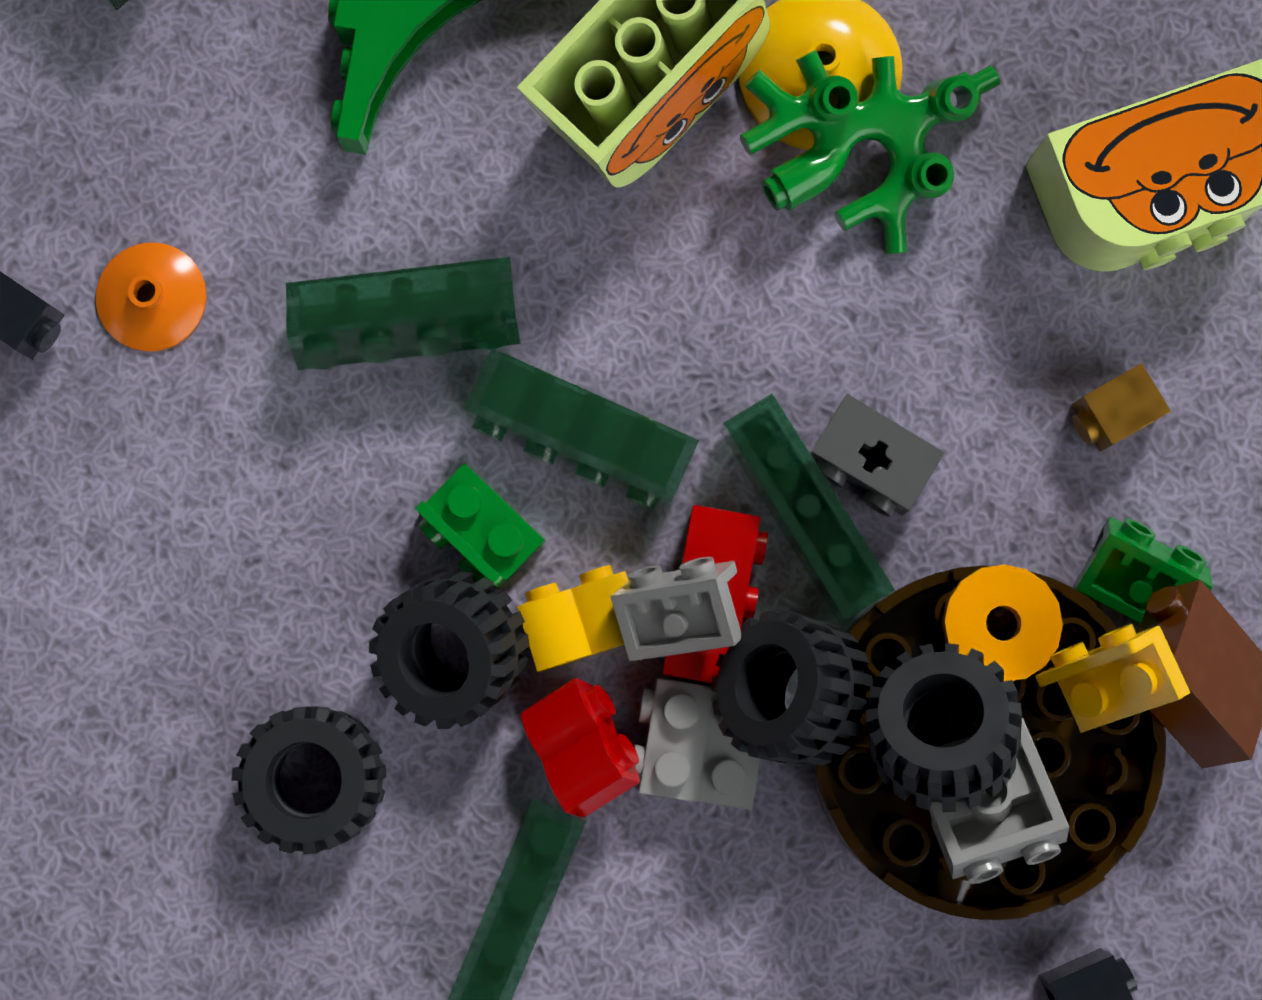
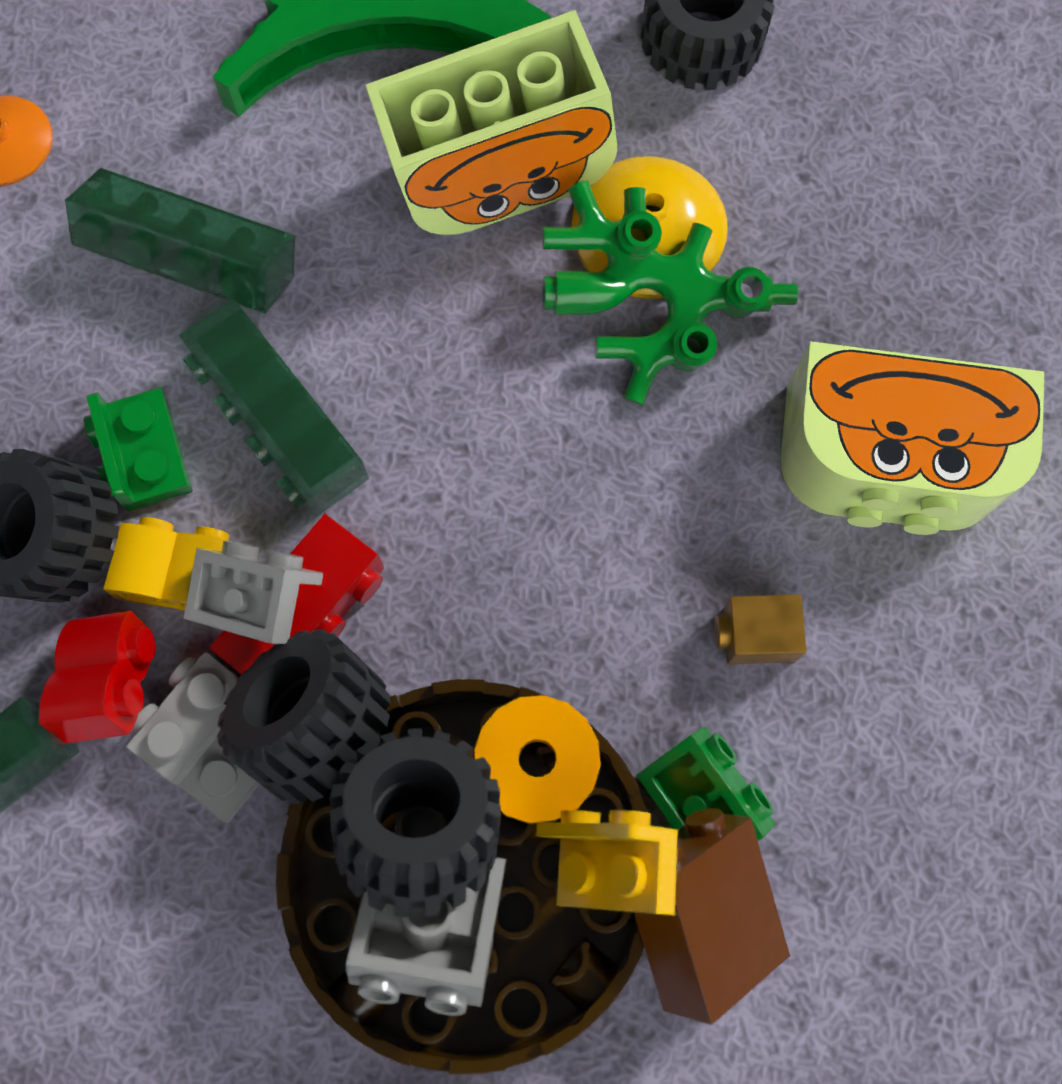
camera: 25 degrees right, 10 degrees down
(806, 508) = (423, 568): clear green brick -> none
(905, 455) = (511, 527): dark grey brick -> none

